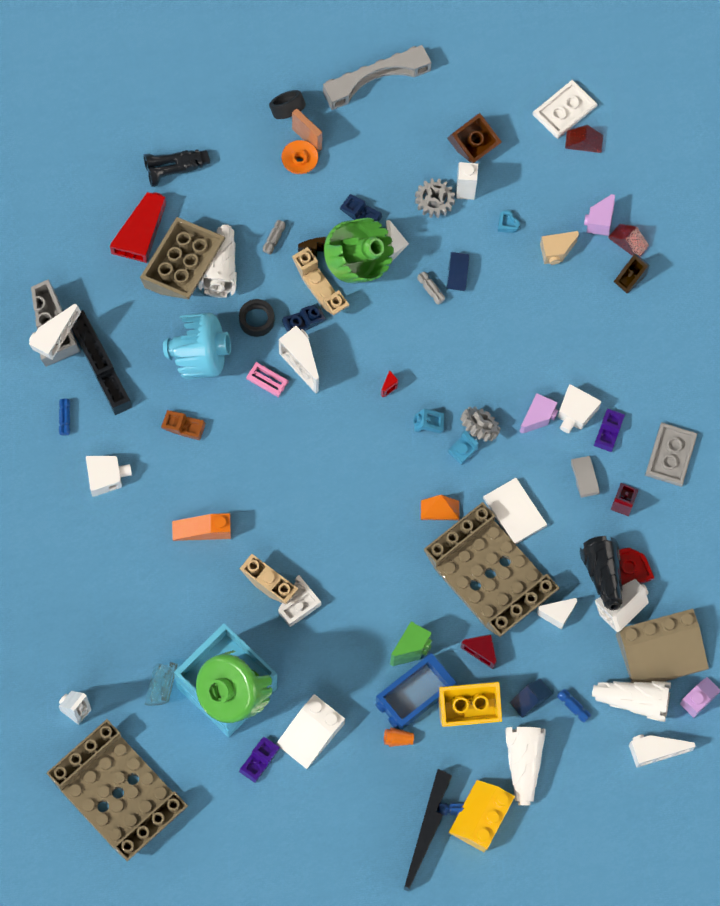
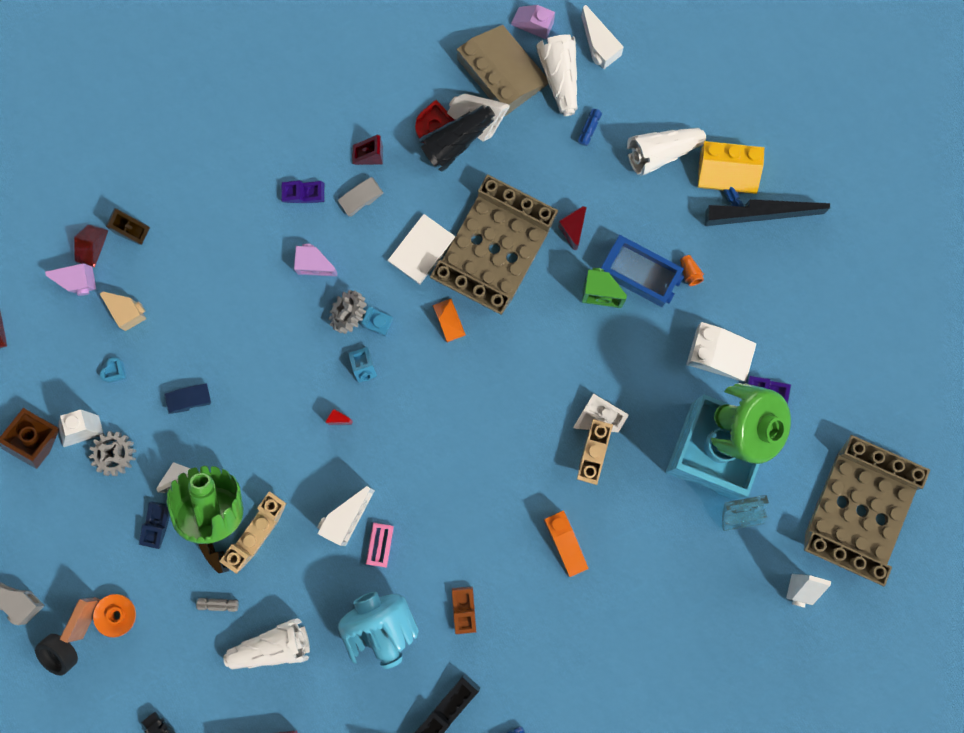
camera: 105 degrees left, 10 degrees up
(105, 474) = (550, 668): white torso -> none
(181, 259) = (284, 690): dark tan slope -> none
(256, 304) = (300, 584): black tyre -> none
(305, 319) = (300, 534): dark blue slope -> none
(431, 288) = (215, 419): light grey axle -> none
(470, 704) = (639, 212): yellow slope -> none
(530, 697) = (599, 166): dark blue slope -> none
(557, 612) = (506, 169): white slope -> none
(577, 409) = (293, 228): white torso -> none
(671, 454) = (305, 127): light grey tile -> none

